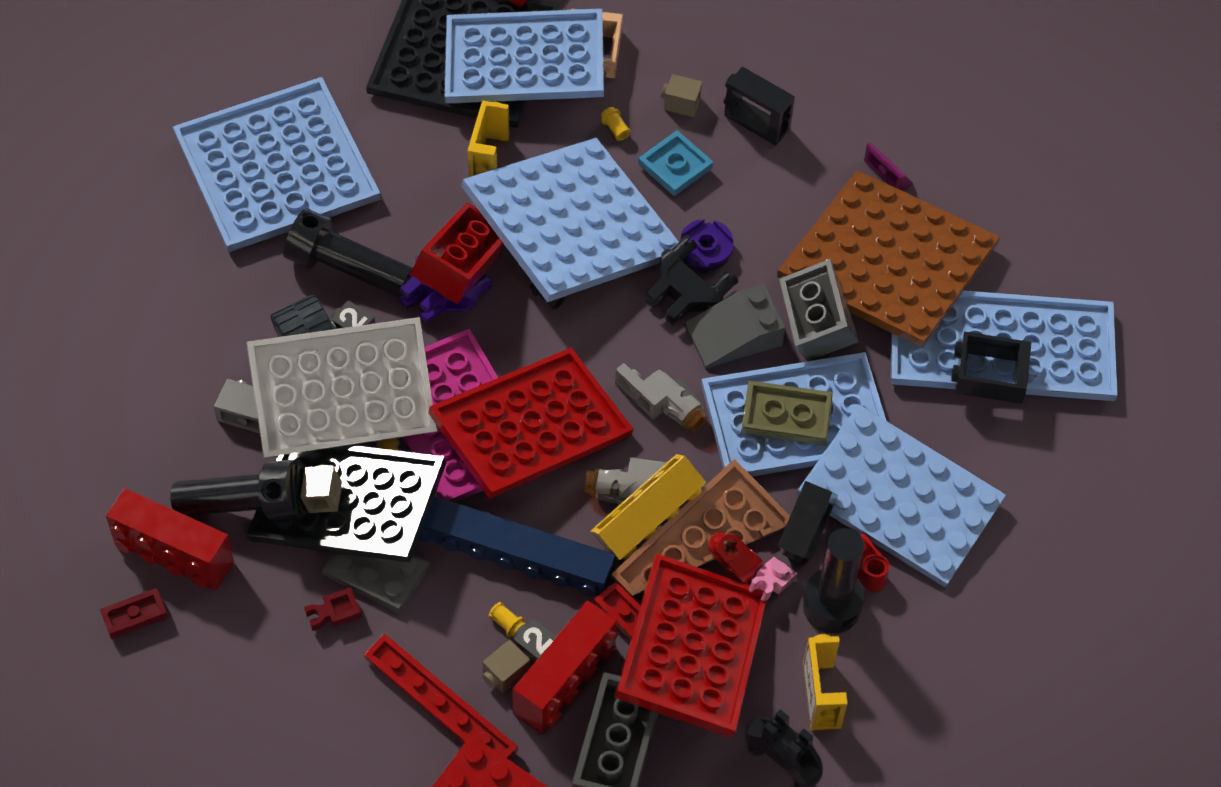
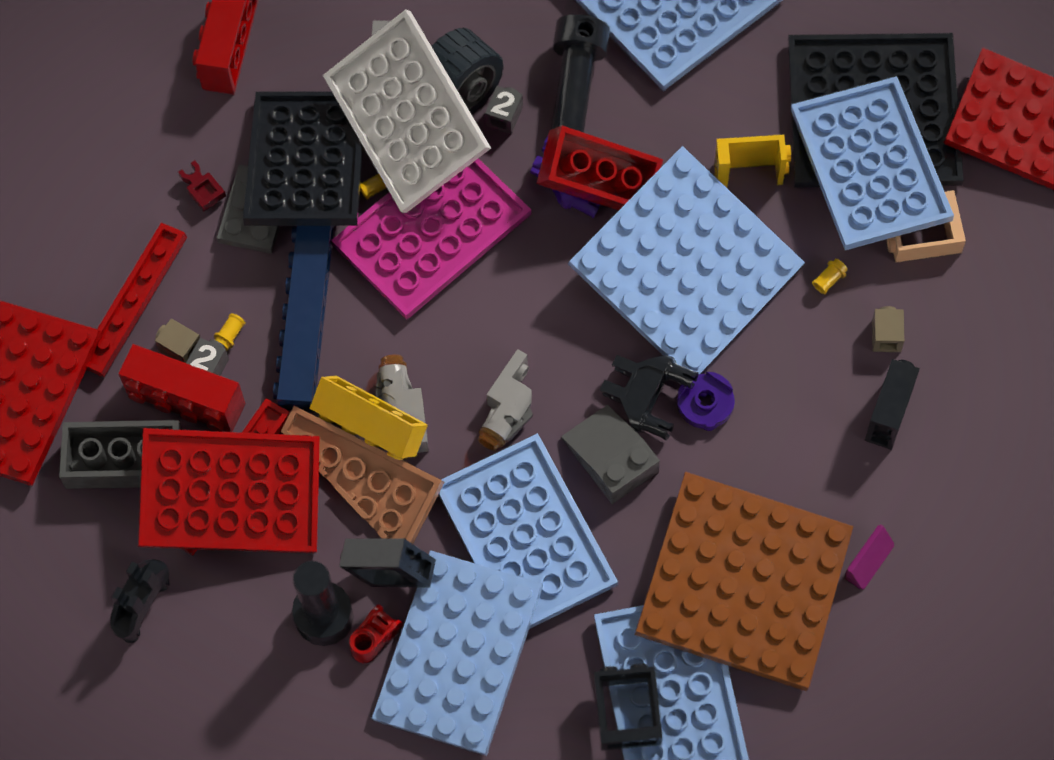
camera: 80 degrees right, 10 degrees up
(134, 613) = (157, 31): dark red plate -> none
(273, 491) = (286, 93): black piece -> none
(321, 489) = (302, 130): dark tan brick -> none
(530, 422) = (435, 290): red plate -> none
(675, 163) = (799, 345): dark azure plate -> none
(738, 560) = (340, 511): red piece -> none
(773, 577) = (329, 551): bright pink plate -> none
(787, 413) = (518, 521): olive tile -> none
(818, 311) = (644, 520): dark grey slope -> none
(824, 709) = (219, 610): yellow panel -> none

